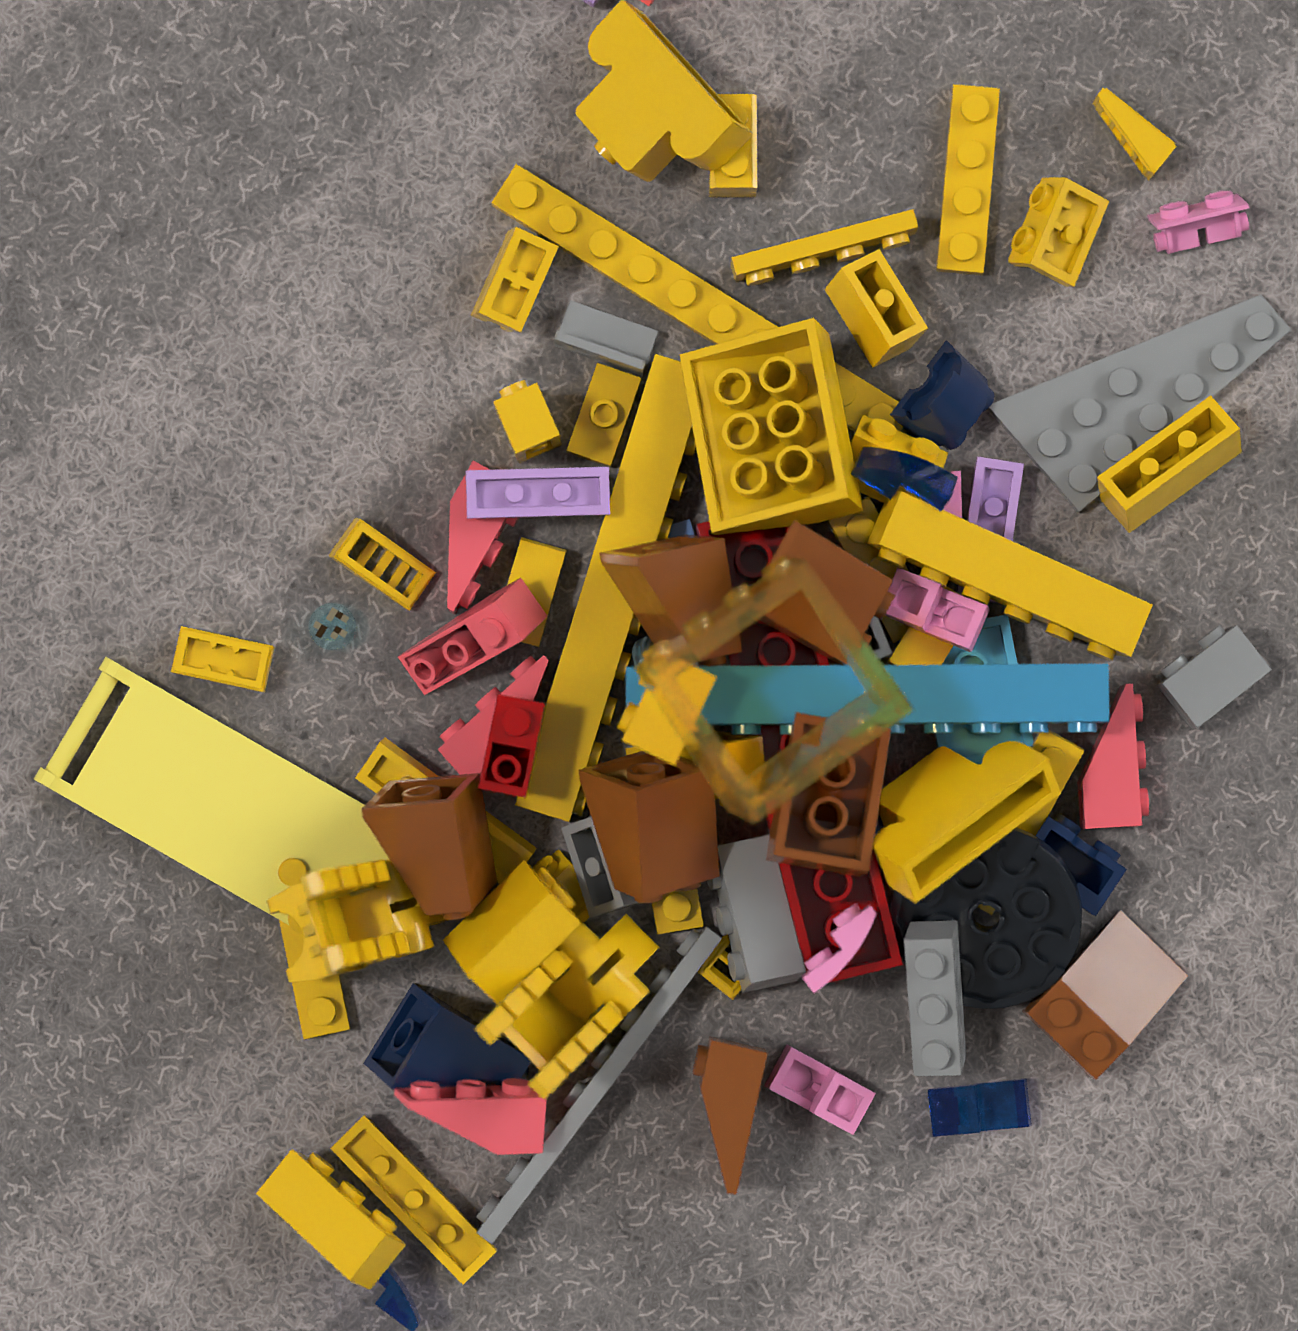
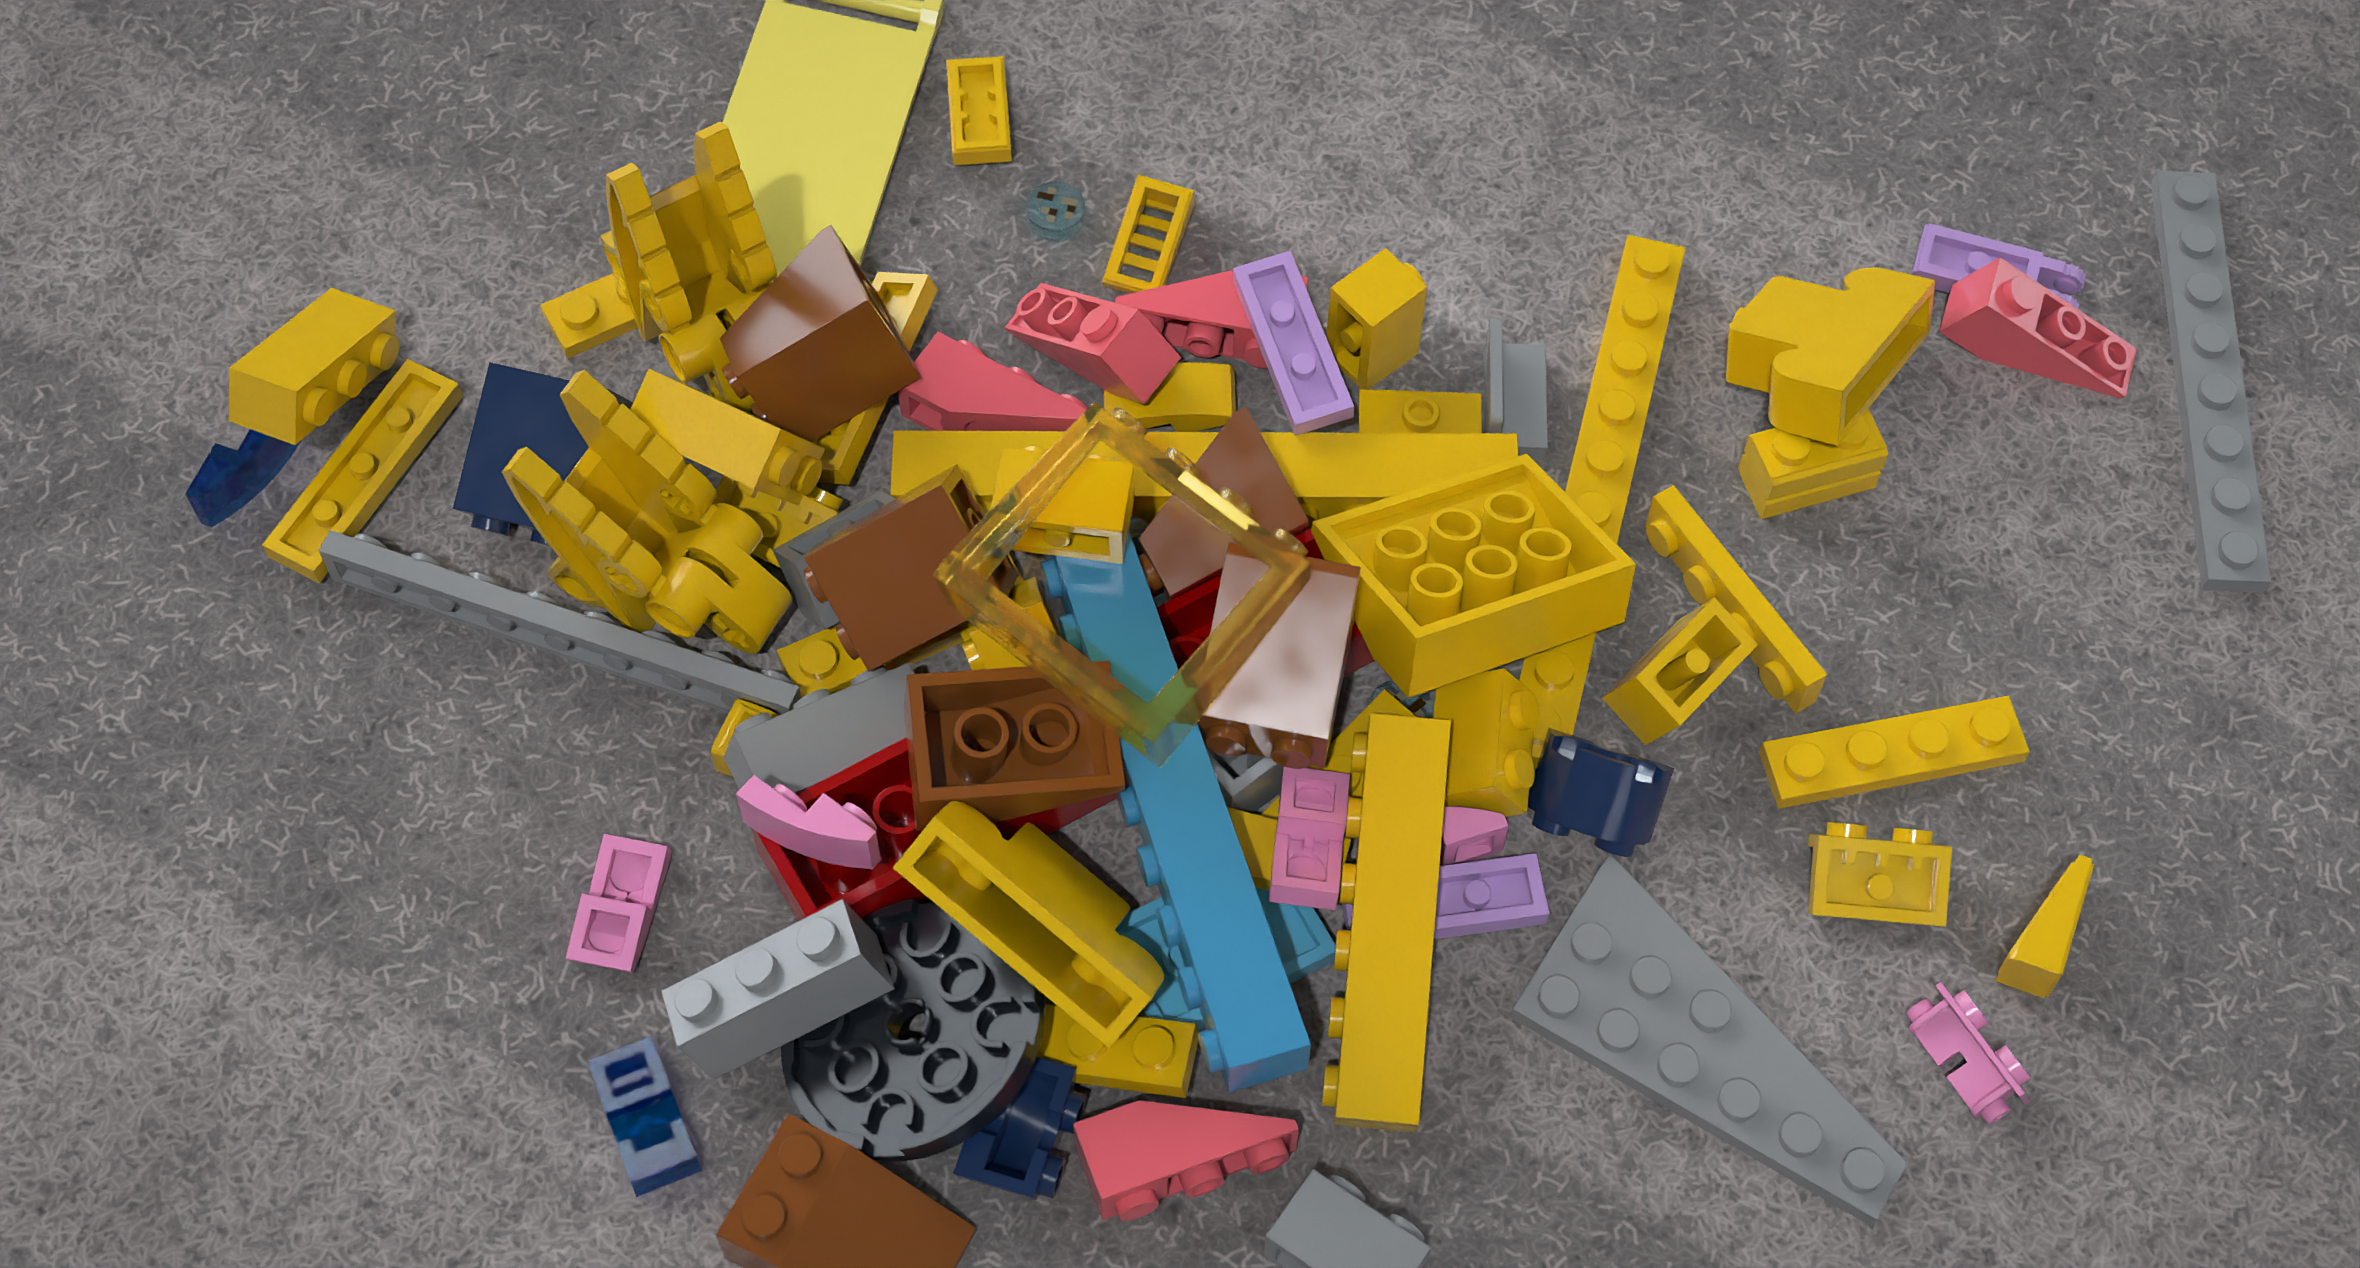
camera: 75 degrees right, 25 degrees down
(495, 1117) = (470, 494): coral slope -> none
(512, 745) = (967, 385): red slope -> none
(514, 280) = (1545, 269): yellow hinge -> none
(730, 1091) = (564, 775): dark orange slope -> none
(889, 469) = (1478, 740): clear blue slope -> none
(1169, 464) = (1622, 1096): yellow brick -> none

